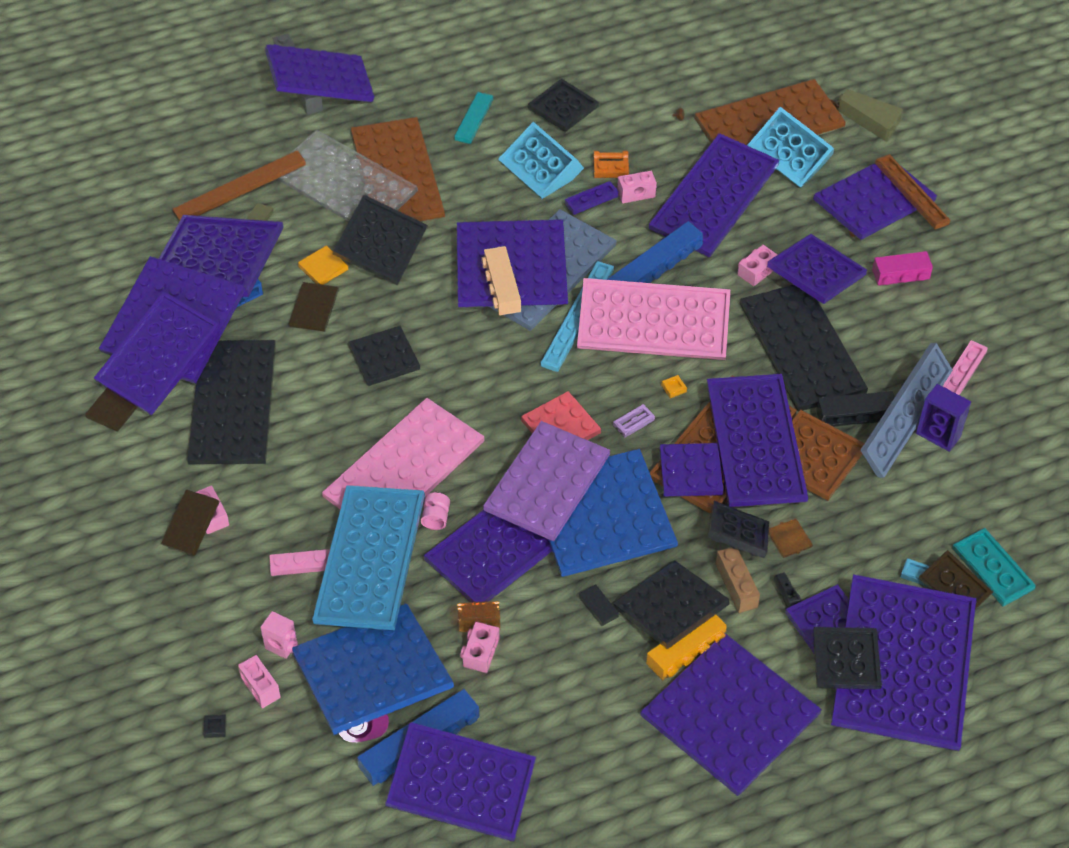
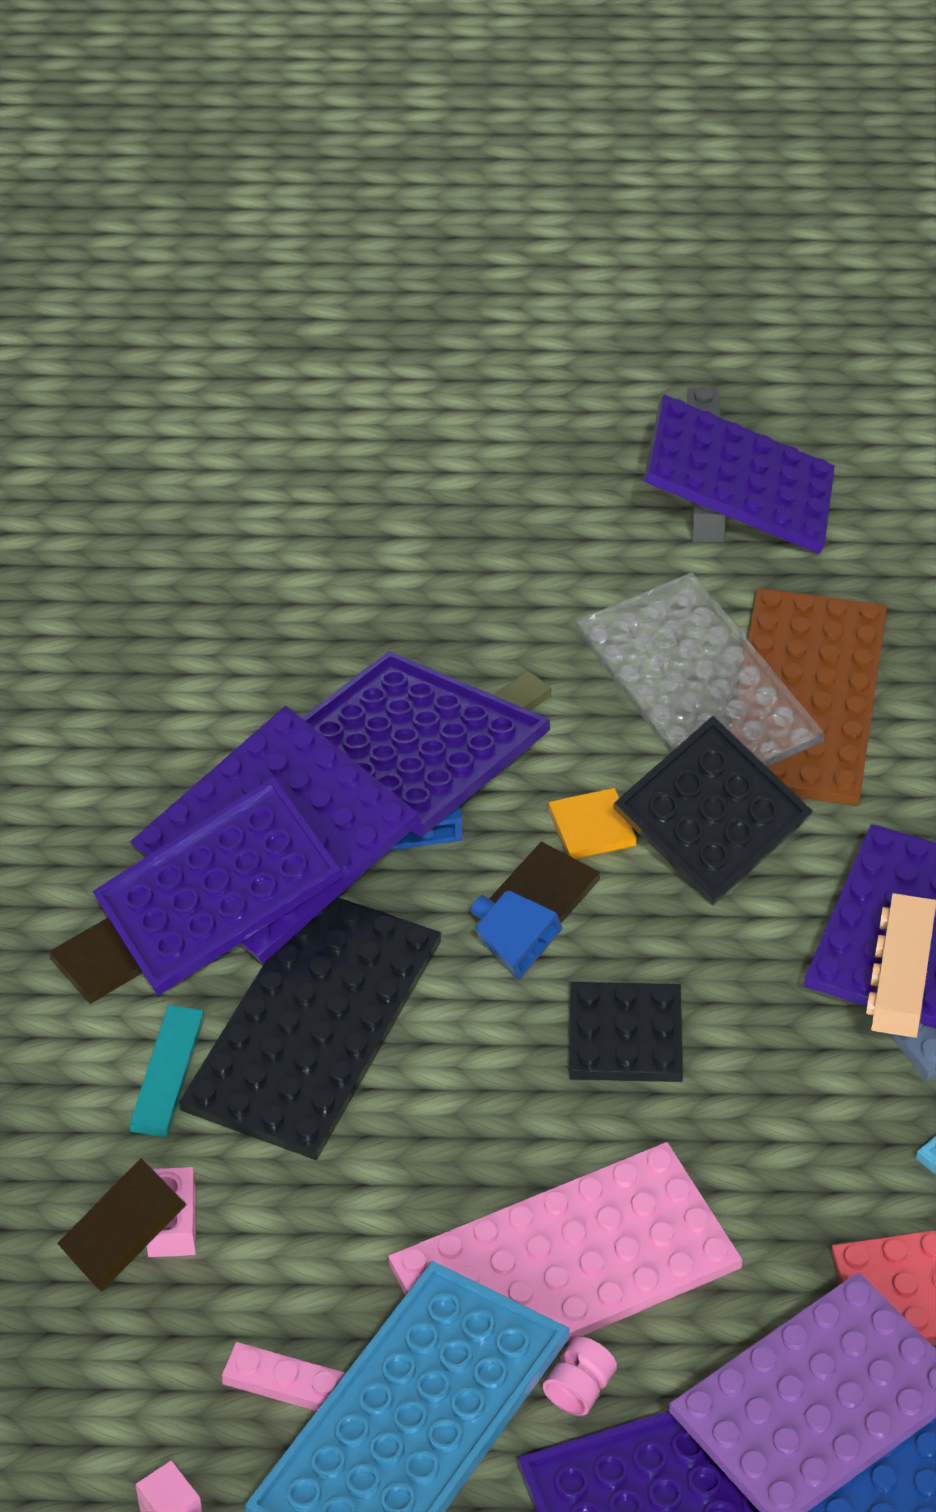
camera: 25 degrees right, 5 degrees down
(173, 448) = (167, 1071): none -> teal tile
(240, 185) = (513, 630): dark orange tile -> none
(311, 326) = (515, 929): none -> blue torso

